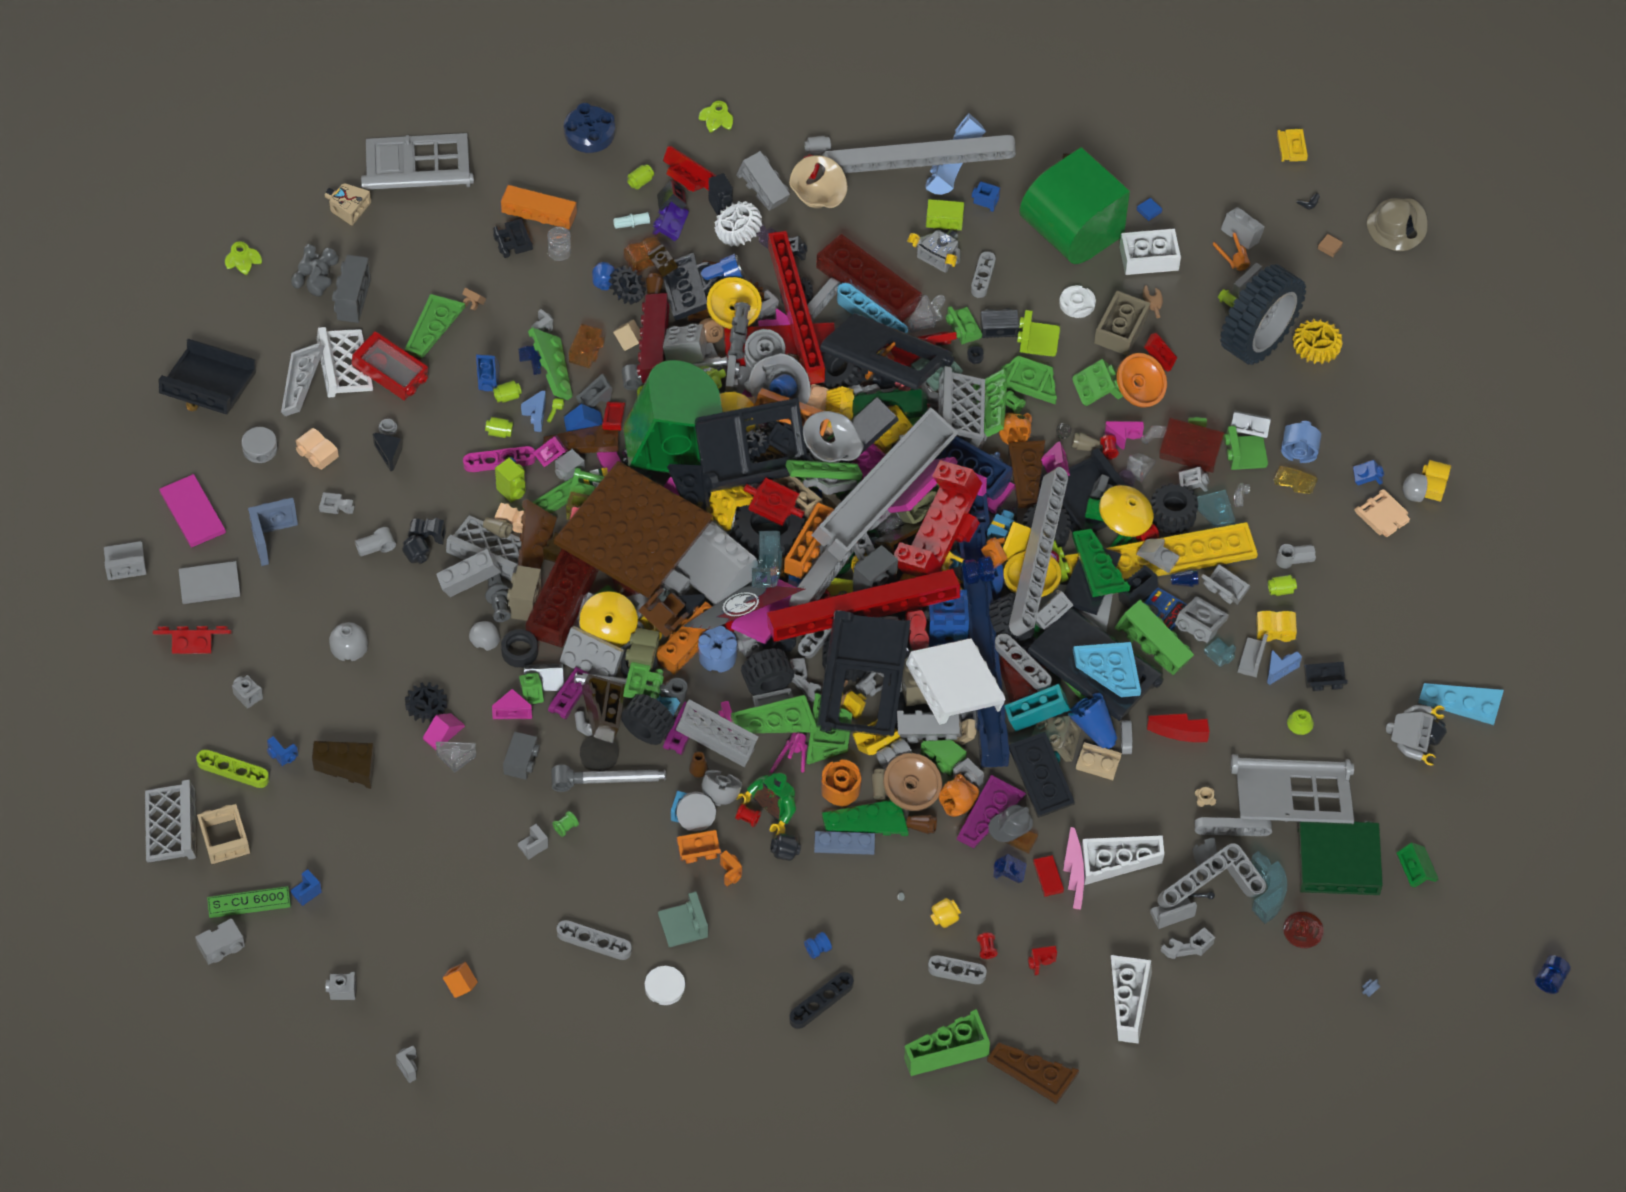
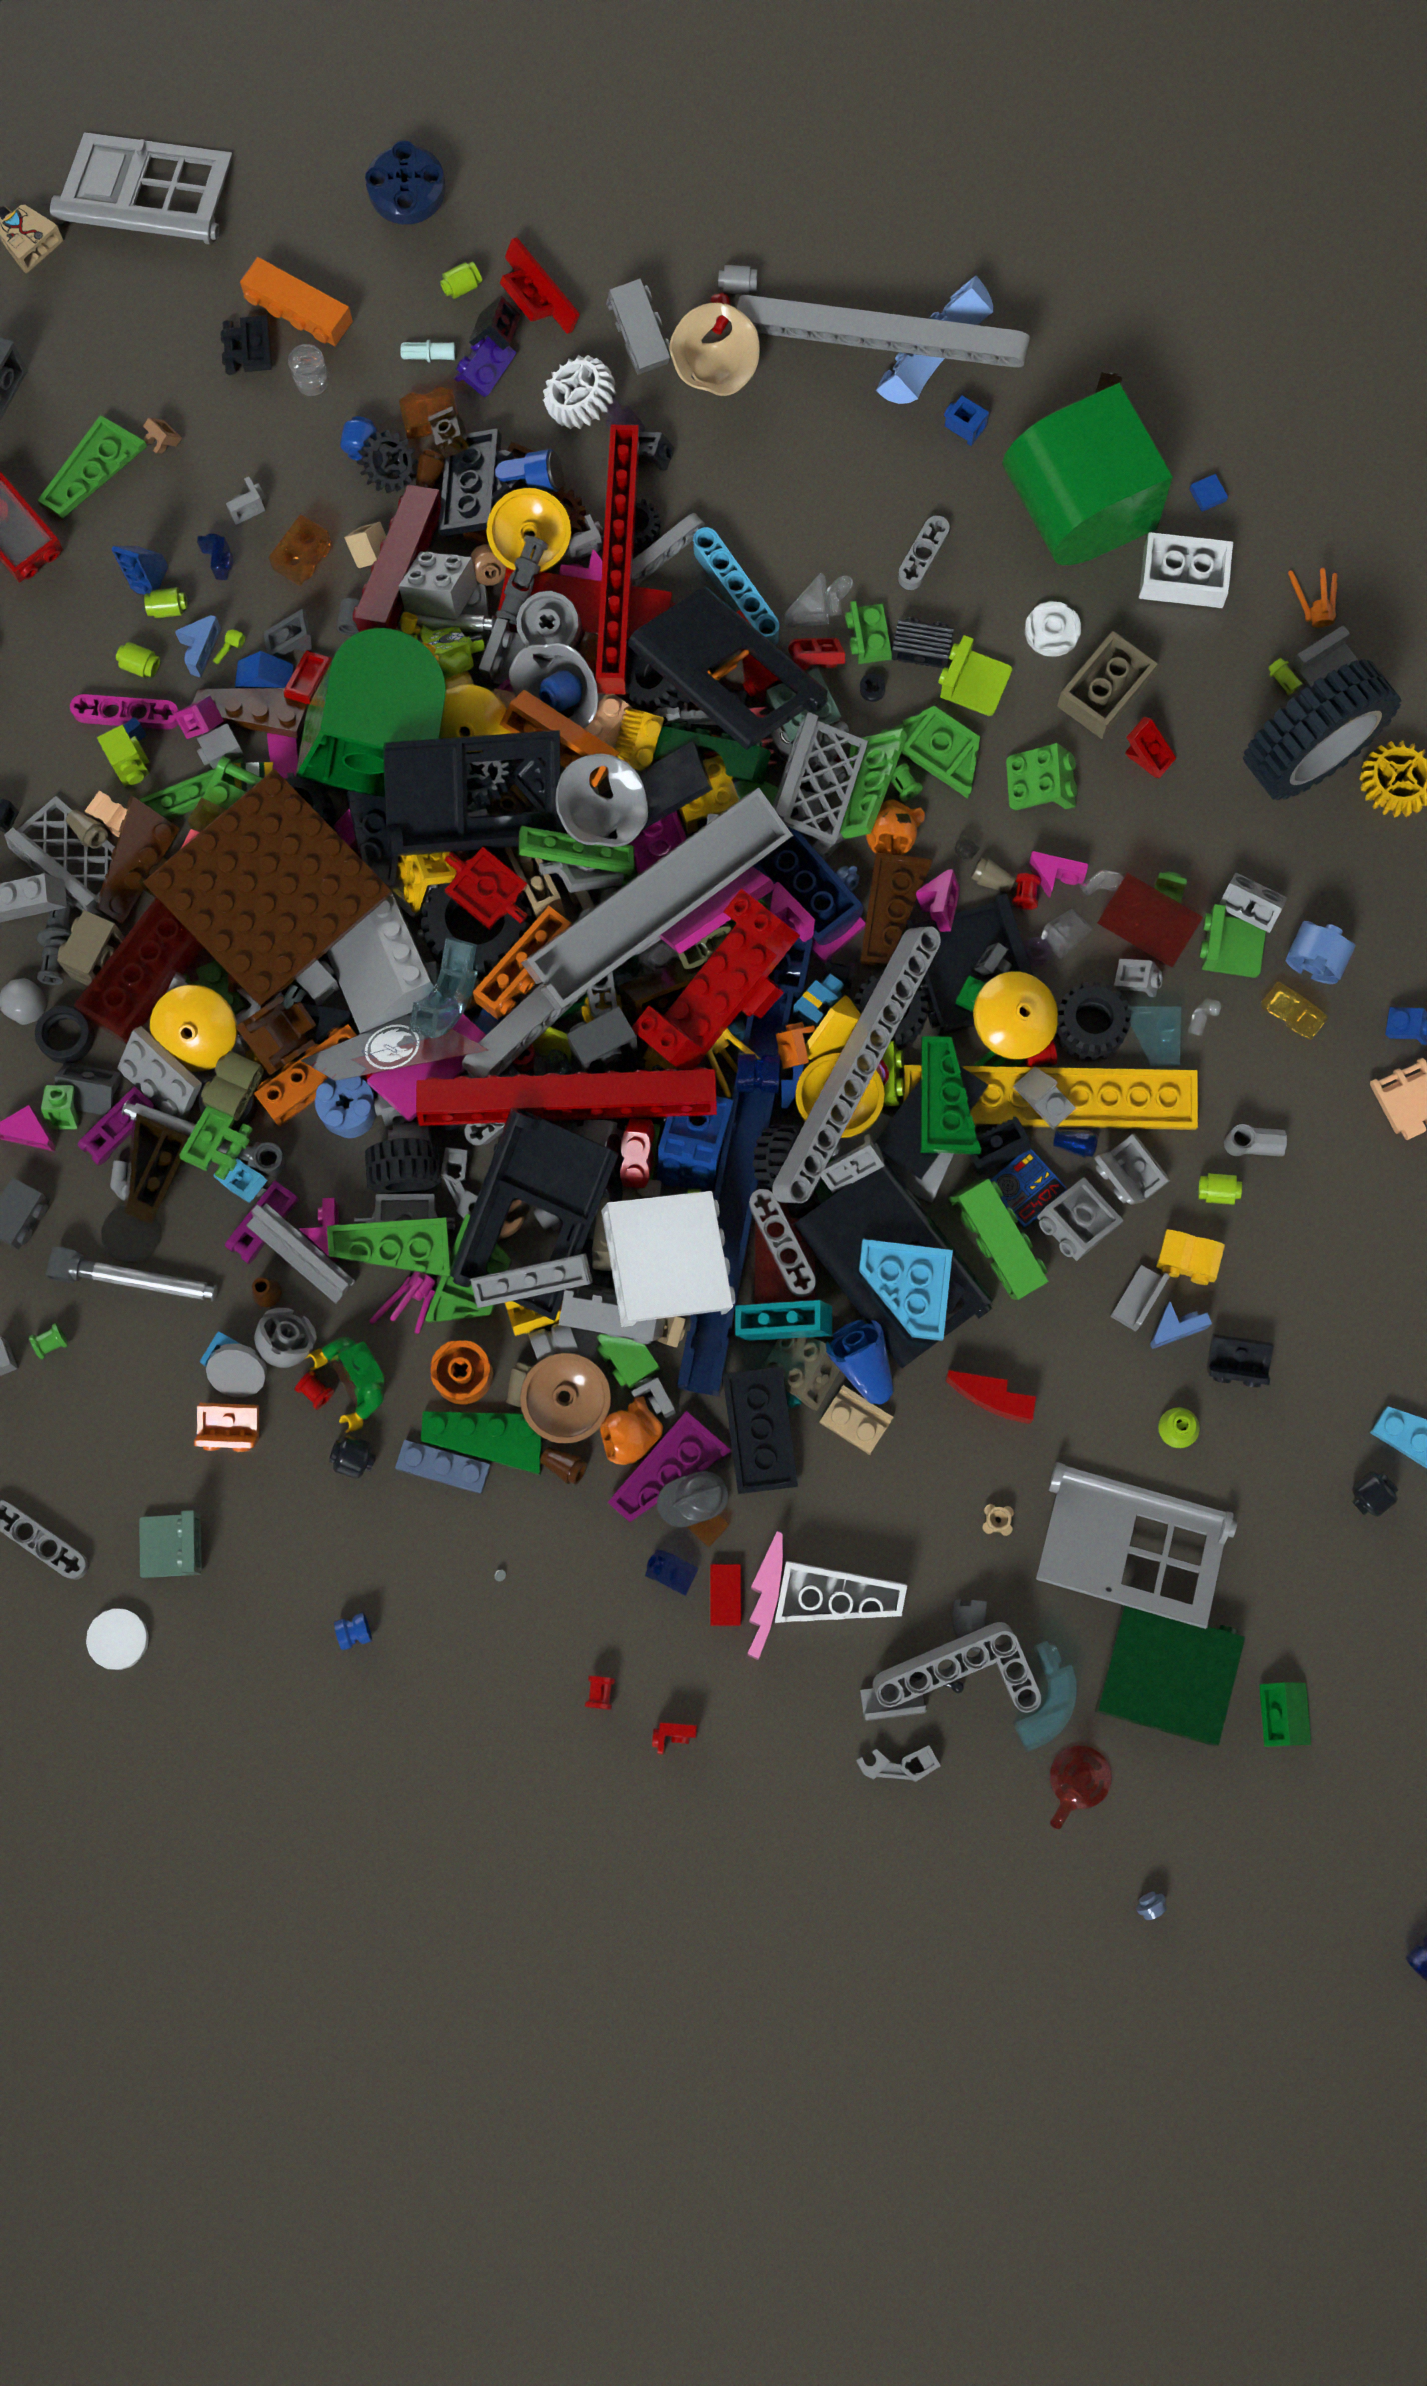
camera: 20 degrees right, 20 degrees up
(553, 361) = (244, 565): bright green wing -> none
(647, 719) = (206, 1204): black tyre -> none
(716, 118) = (603, 202): lime plate -> none
(720, 193) = (566, 334): black brick -> none
(732, 866) = (266, 1465): orange bracket -> none
(820, 999) = (332, 1716): black beam -> none
(853, 265) = (747, 526): clear red brick -> none
(854, 704) = (522, 1242): yellow tile -> none
(873, 713) = (531, 1280): none -> light grey tile
(937, 249) = (866, 496): light grey torso -> none
(945, 214) = (893, 440): lime brick -> none
(945, 913) = (553, 1624): yellow head -> none
(948, 1046) = (493, 1849): bright green wedge -> none
(970, 978) = (529, 1701): light grey beam -> none
(1038, 1074) = (611, 1921): reddish brown wing -> none
(1126, 736) = (907, 1392): light grey beam -> none
(1131, 990) = (785, 1830): white wedge -> none
(1149, 378) = (1121, 796): orange dish -> none
(1156, 301) = (1167, 655): medium nougat hand -> none
(1220, 652) = (1092, 1279): clear light blue bracket -> none
(1232, 826) = (1021, 1582): light grey beam -> none
(1246, 228) = (1341, 557): light grey brick -> none
(1413, 731) = (1344, 1492): light grey torso -> none

